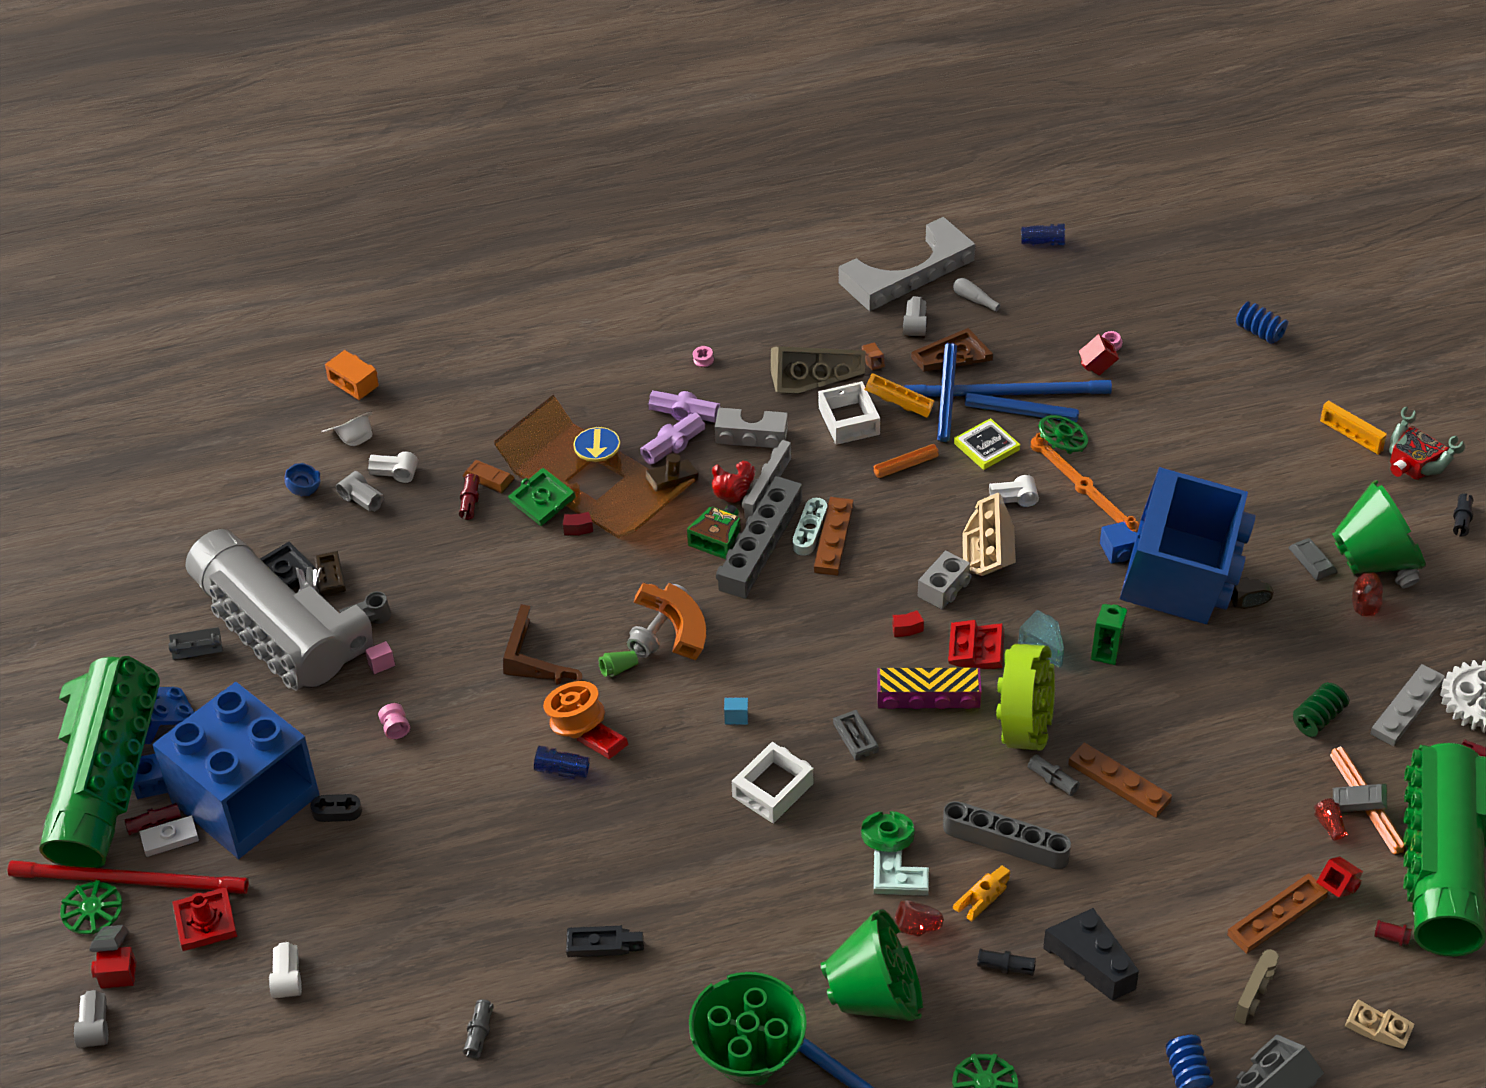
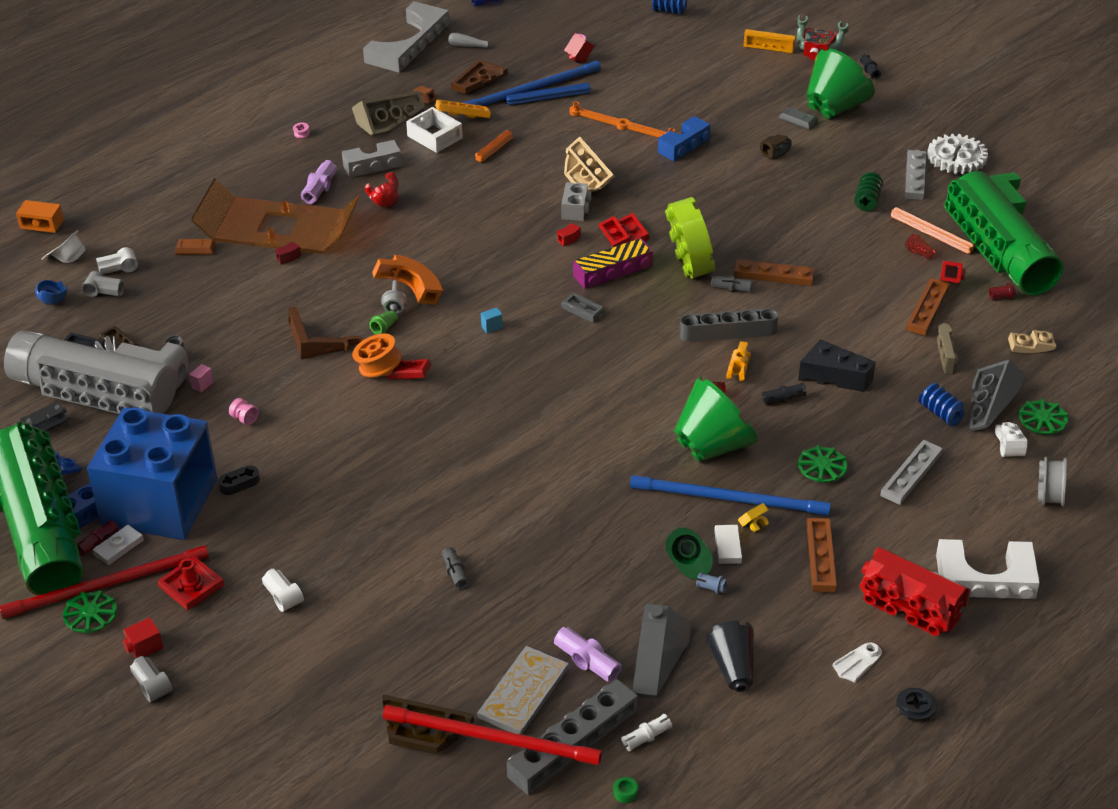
camera: 30 degrees left, 5 degrees down
(109, 938) = (124, 621): dark grey tile -> none
(469, 496) = (191, 262): dark red pin -> none
(541, 496) = (248, 244): green plate -> none
(563, 763) = (392, 392): clear blue axle -> none
(596, 444) = (267, 199): blue piece -> none
(602, 941) = (503, 483): black hinge -> none
(672, 474) = (335, 202): dark brown tile -> none
(683, 405) = (303, 162): lavender piece -> none
(715, 531) = (394, 225): torso -> none
(747, 1026) = (659, 482): green cone -> none
(759, 537) = (427, 218): dark grey brick -> none
(759, 800) = (556, 364): white window -> none
(779, 460) = (406, 185): light grey plate -> none
(811, 534) = (456, 207): light aqua beam -> none
(833, 536) = (477, 203): dark orange plate -> none
(898, 880) = (672, 377): light aqua tile -> none
(899, 837) = (649, 351): green tile -> none
(915, 318) = (437, 65): light grey piece -> none
(947, 390) = (494, 97): blue axle -> none
(987, 444) = (541, 120): tile -> none
(1021, 490) = (588, 135): white piece -> none
(1043, 630) = (657, 209): clear light blue slope -> none
(1063, 433) = (589, 98): green wheel -> none
(1109, 624) = (708, 188): green torso -> none
(1188, 547) = (730, 122): blue piece -> none
(1361, 797) = (930, 227): dark grey tile -> none
(1367, 594) = (848, 123): clear red rock -> none
(1407, 578) = (864, 108): light grey plate -> none

